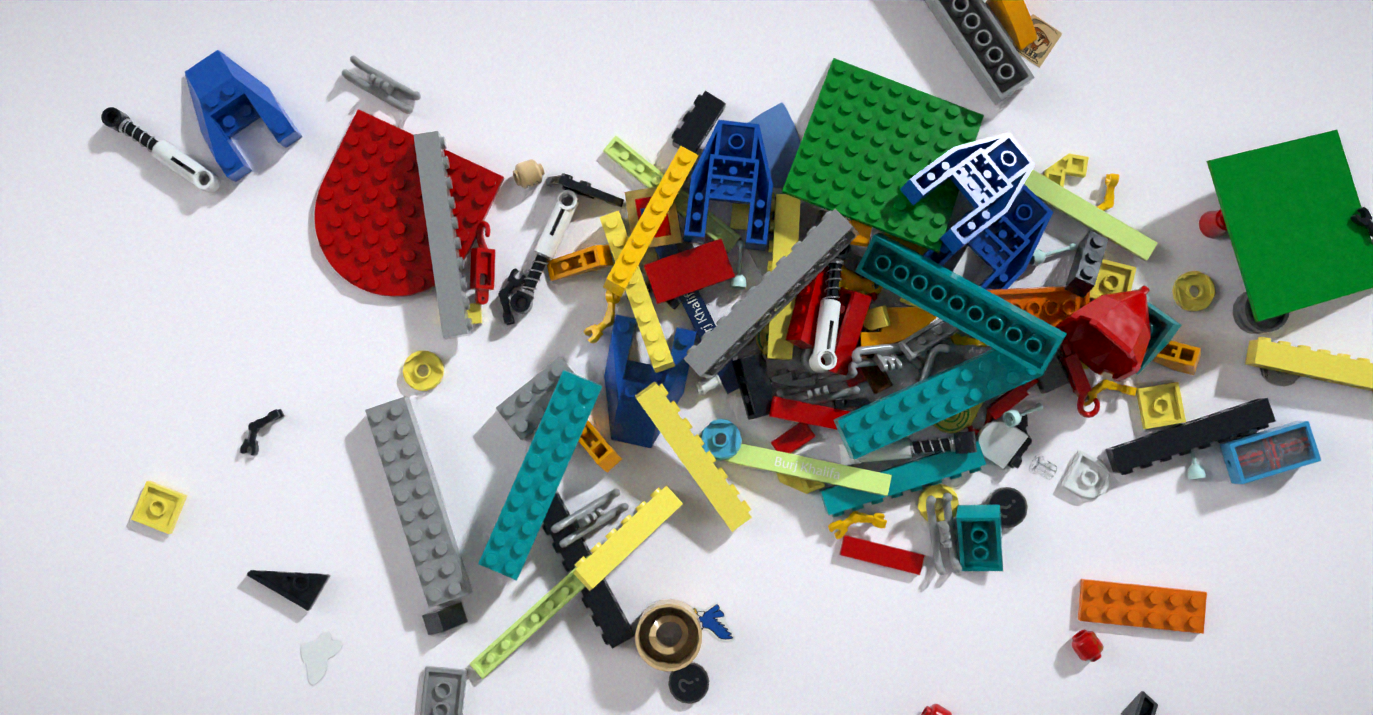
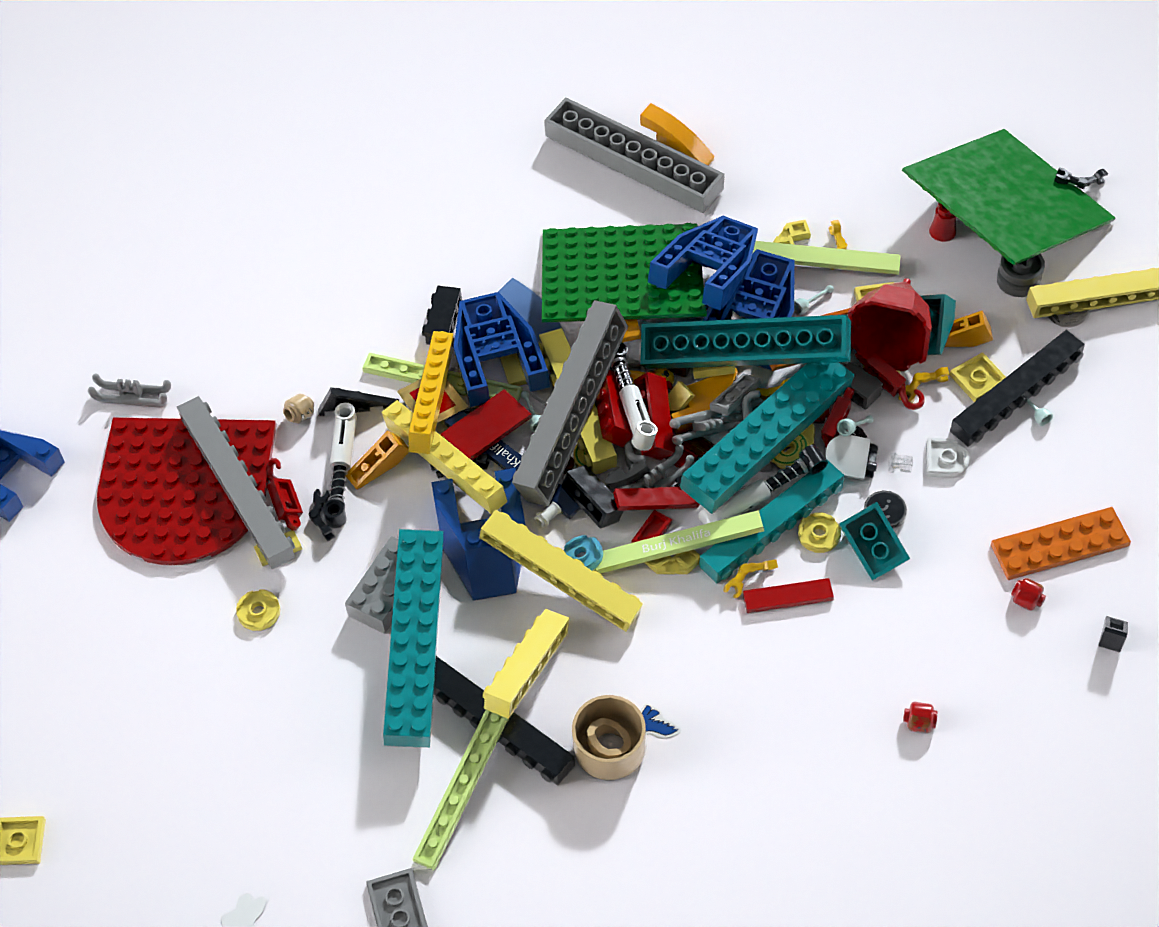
camera: 20 degrees left, 30 degrees down
(254, 428) = (116, 705): black piece -> none
(295, 586) = (196, 857): black wing -> none
(418, 501) = (300, 724): light grey brick -> none
(444, 618) = (367, 826): black slope -> none
(589, 517) = (479, 666): light grey piece -> none
(598, 448) = (463, 605): light orange slope -> none
(612, 299) = (417, 511): yellow piece -> none
(689, 683) = (652, 786): black tile -> none
(942, 533) = (834, 548): light grey piece -> none
(1046, 39) = (722, 157): tan sticker -> none
(1086, 264) = (845, 287): black brick -> none
(1182, 294) = (961, 274): light yellow tile -> none
(1270, 452) = (1095, 371): brick -> none

